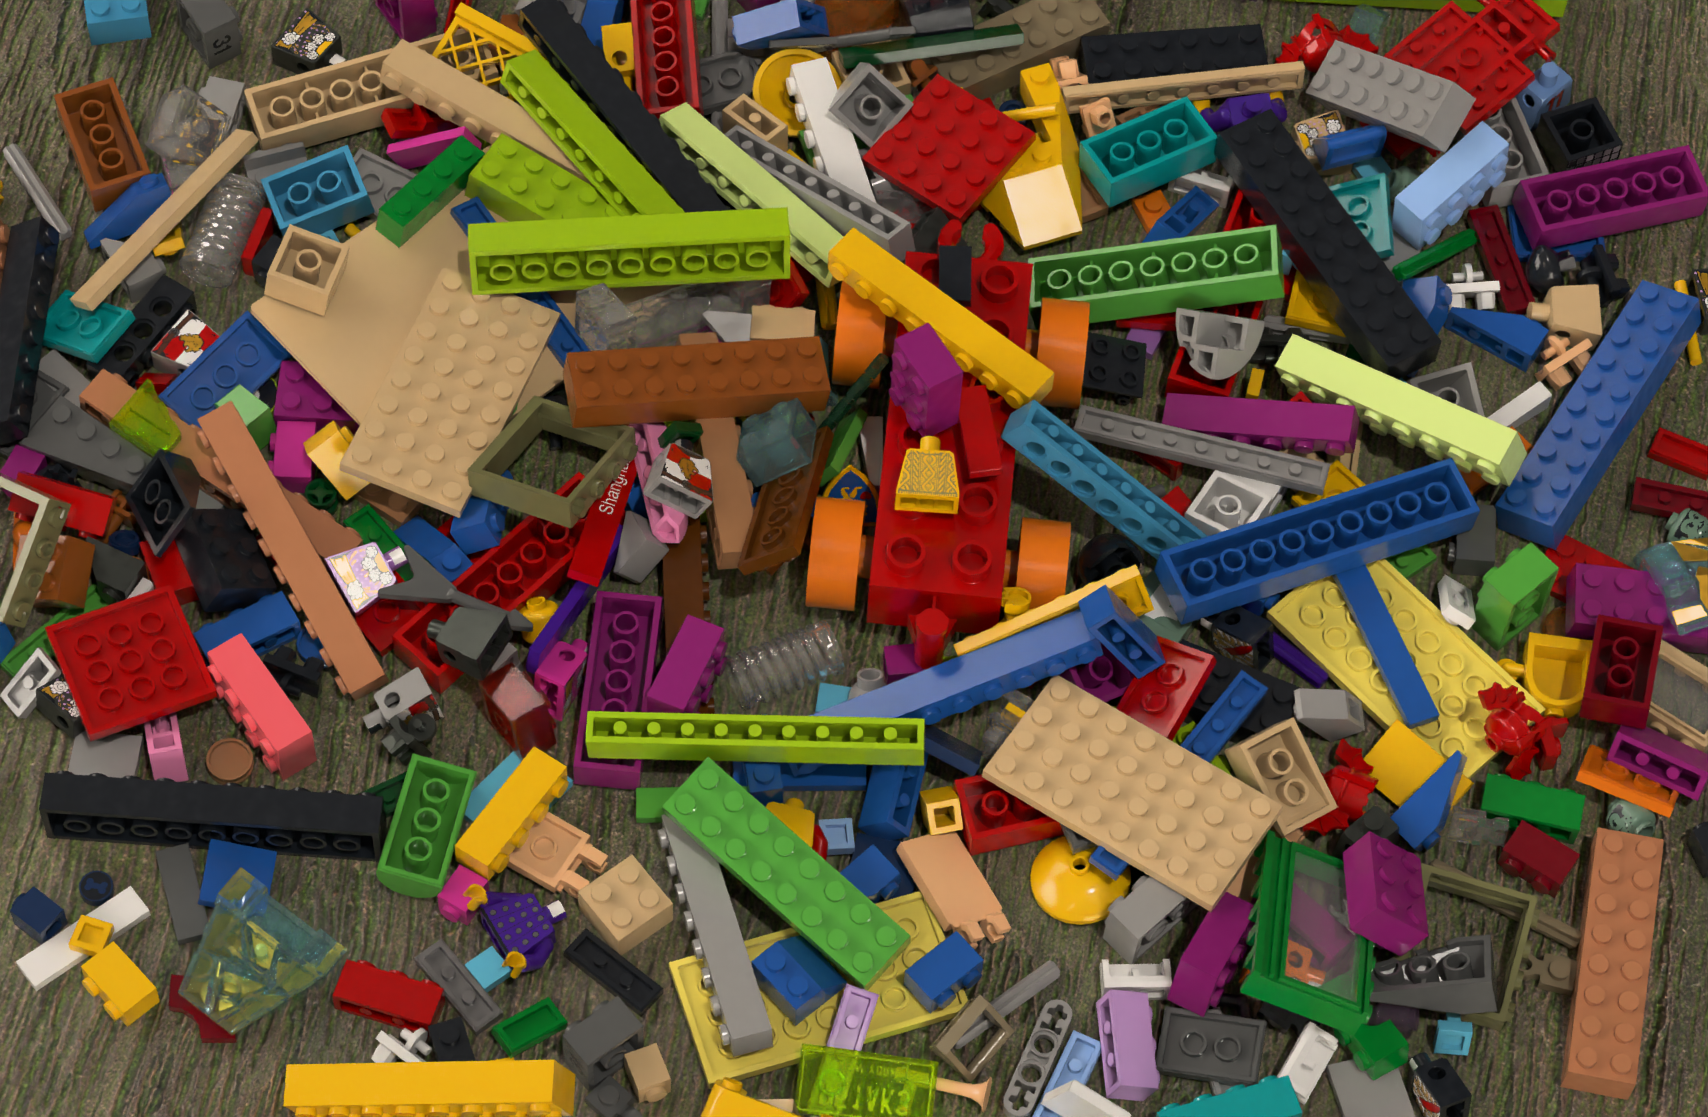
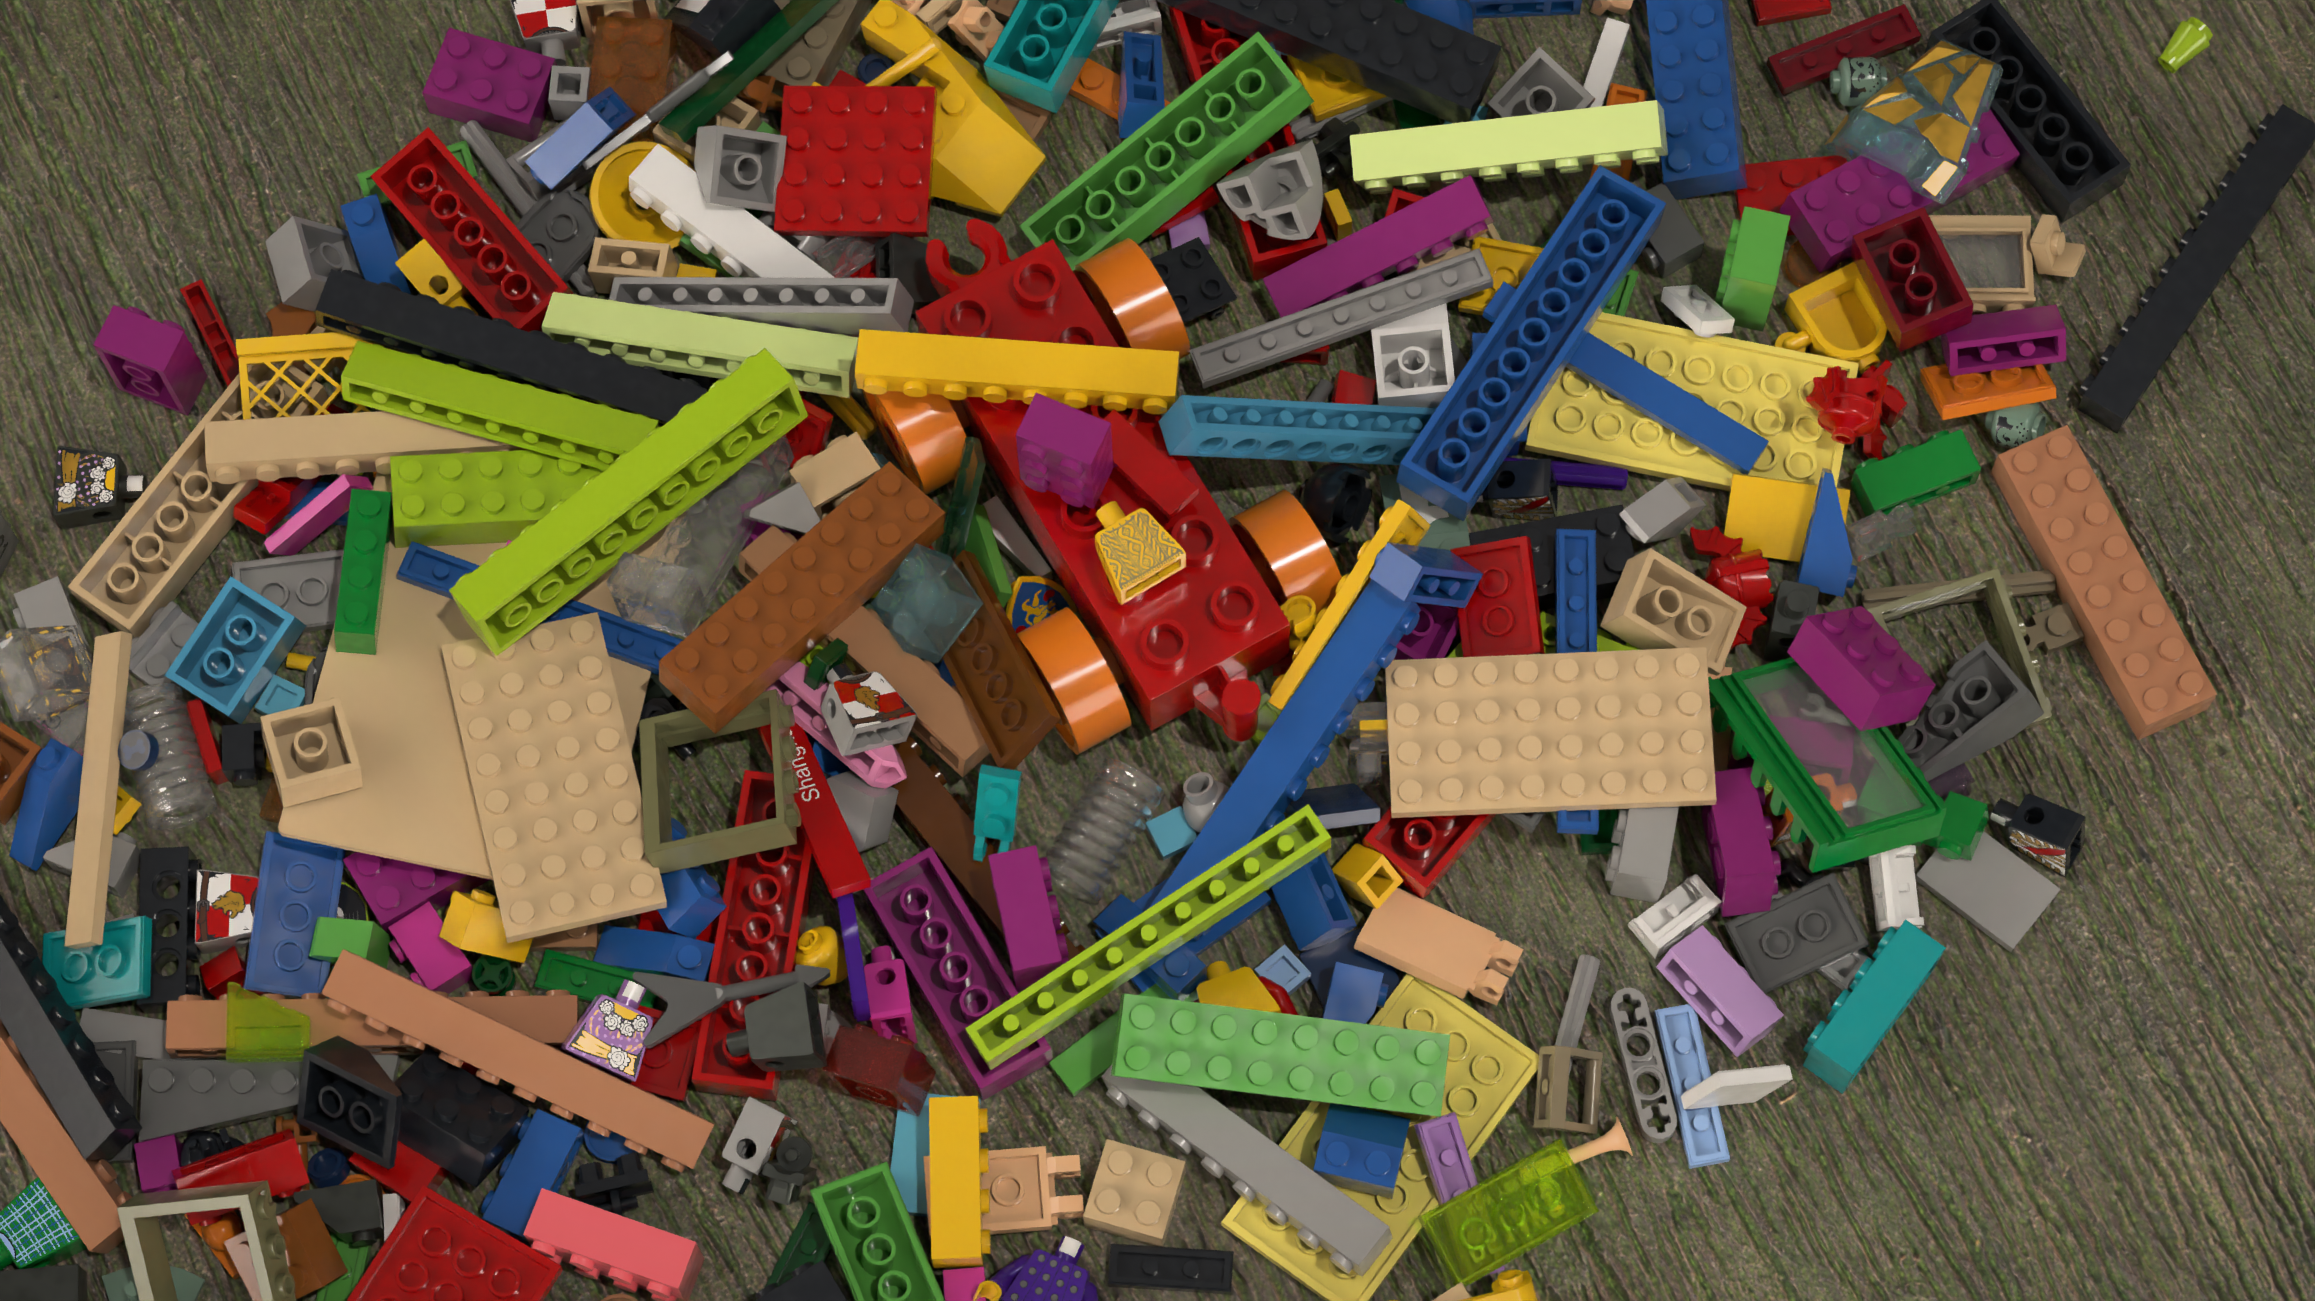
camera: 30 degrees left, 10 degrees up
(206, 209) = (138, 750): none -> tile
(721, 591) = (996, 808): none -> teal hinge
(899, 662) = (1213, 750): magenta brick -> none
(944, 972) = (1498, 1044): blue brick -> none
(956, 273) = (992, 307): black tile -> none
(1070, 893) = (1544, 874): yellow dish -> none
(1452, 1035) = (2010, 762): medium azure tile -> none
(1538, 859) = (1959, 524): dark red brick -> none

